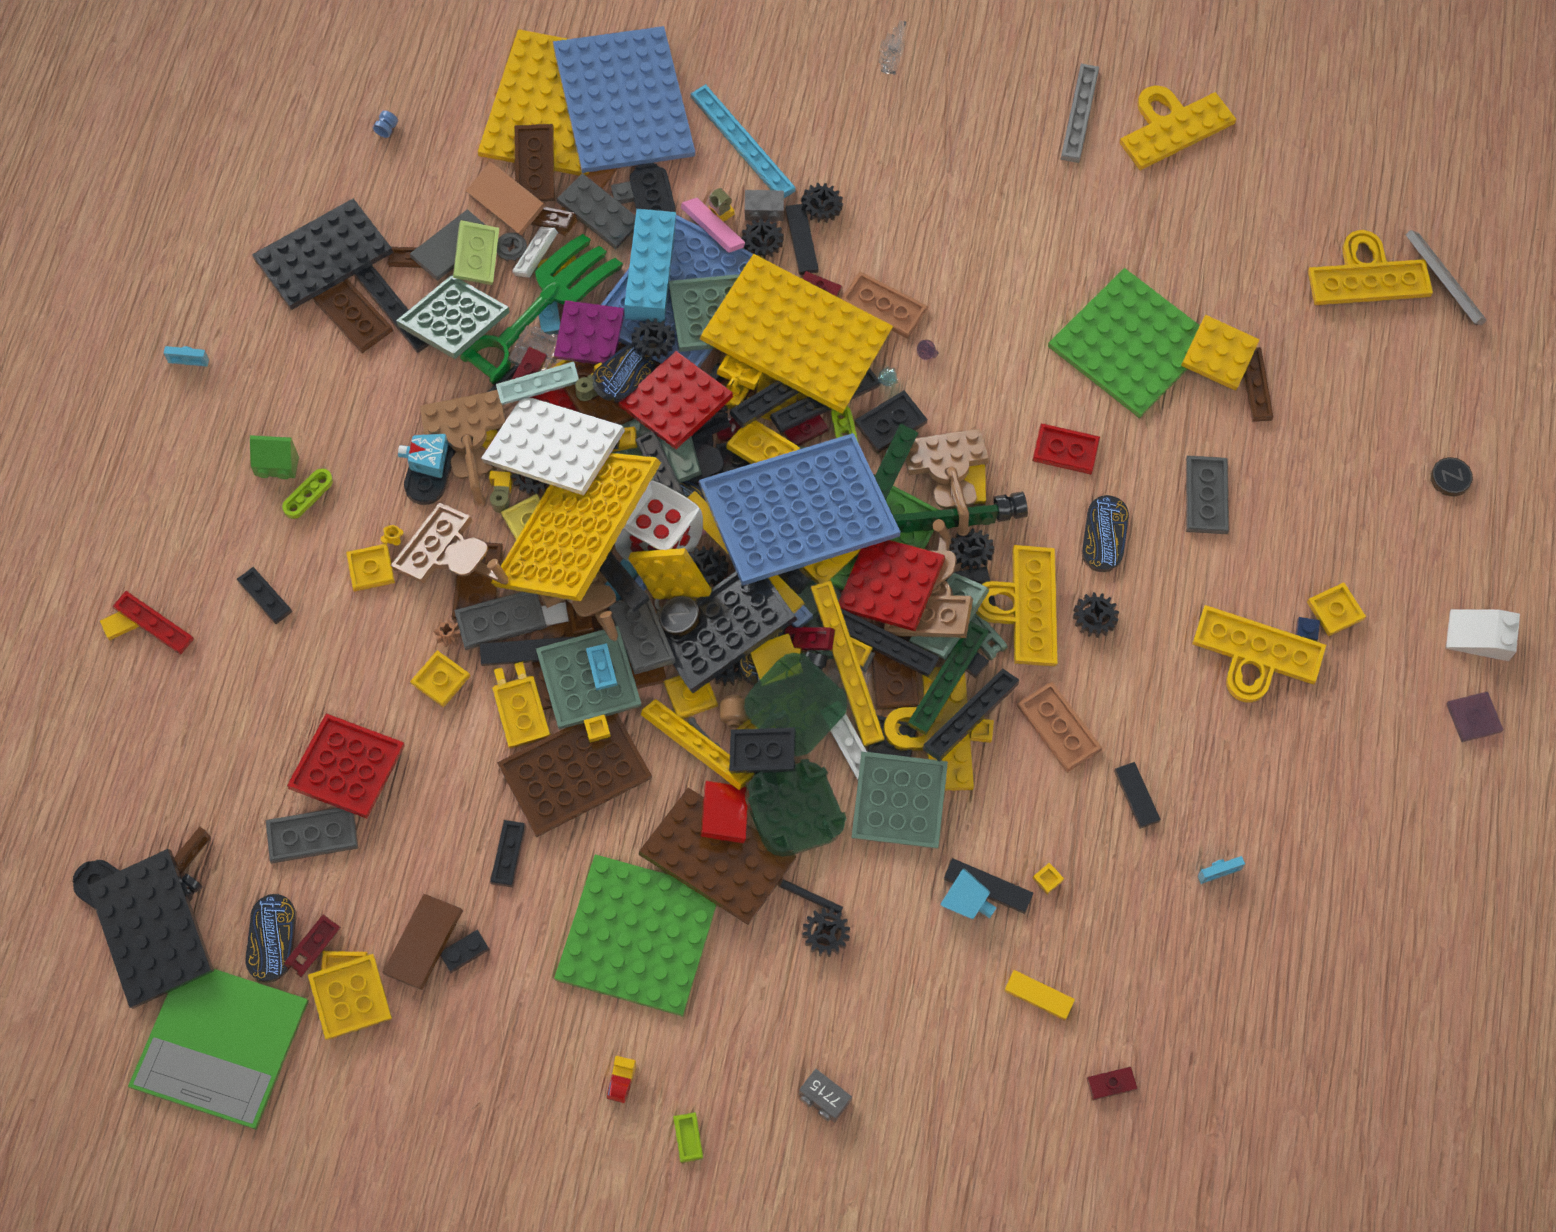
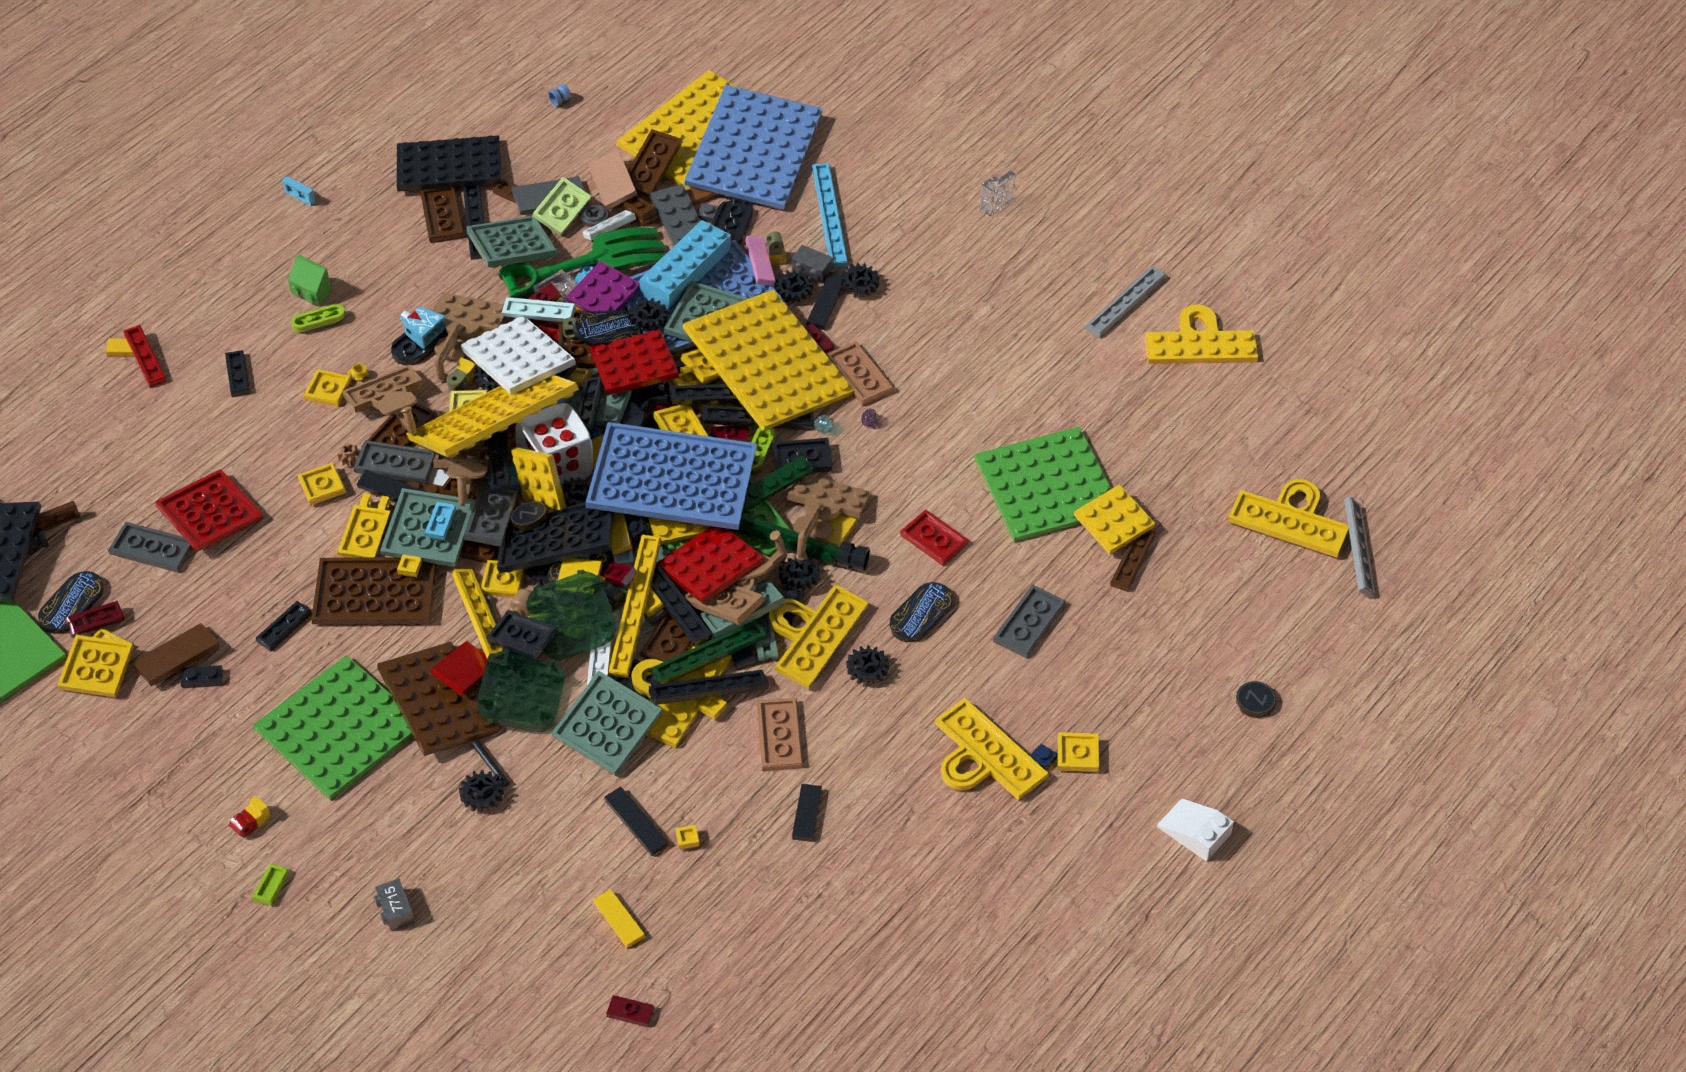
camera: 30 degrees right, 15 degrees down
(968, 897) = (610, 816): medium azure torso -> none
(1221, 868) = (835, 897): medium azure plate -> none
(1474, 716) = (1143, 888): tile -> none

